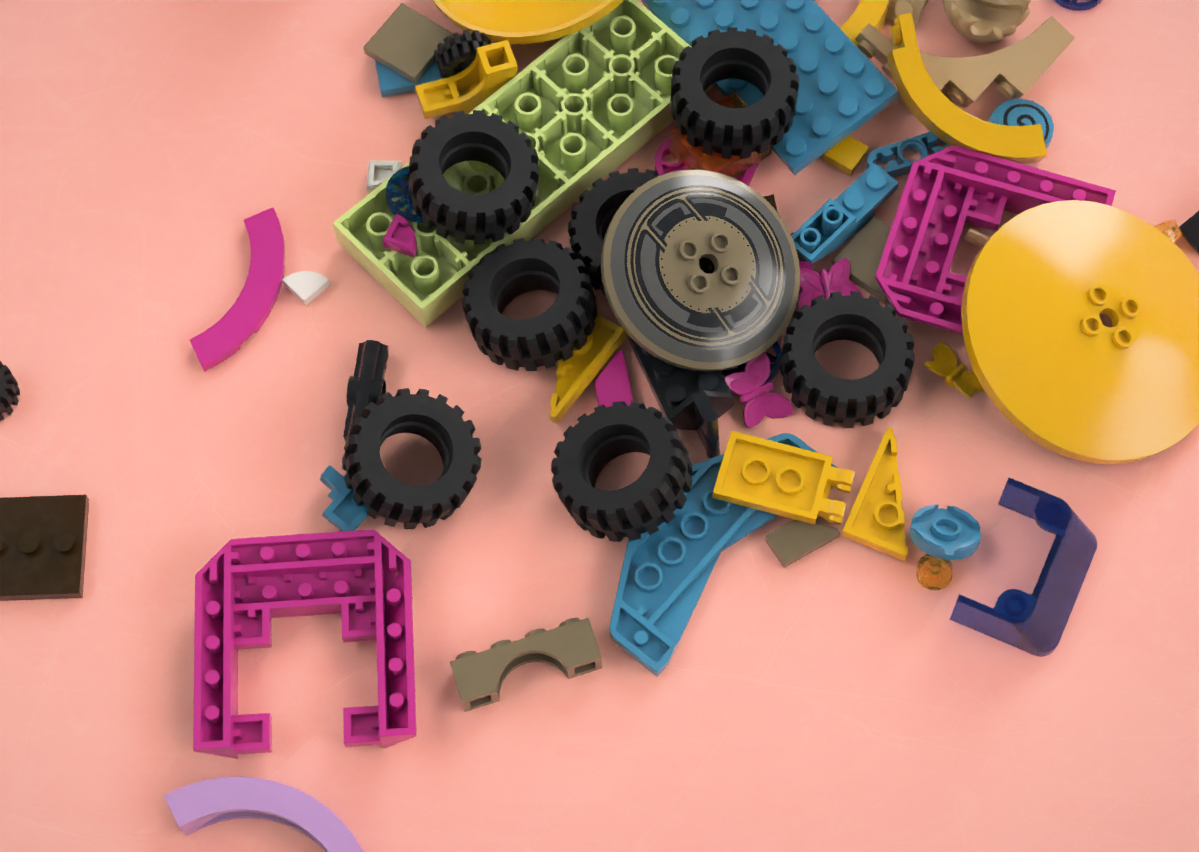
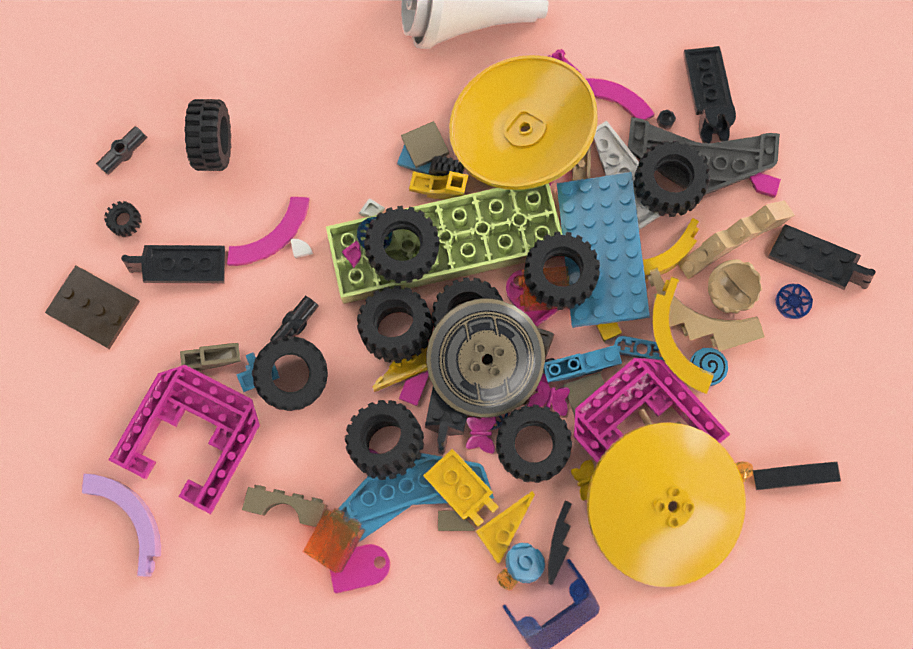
camera: 35 degrees right, 10 degrees up
(62, 185) = (208, 134): none -> black tyre
(122, 406) = (179, 263): none -> black hinge
(264, 509) = (211, 356): none -> dark tan slope
(638, 659) = (334, 540): none -> clear orange brick
(694, 690) = (361, 570): none -> dark pink tile
(978, 486) = (557, 549): none -> black slope

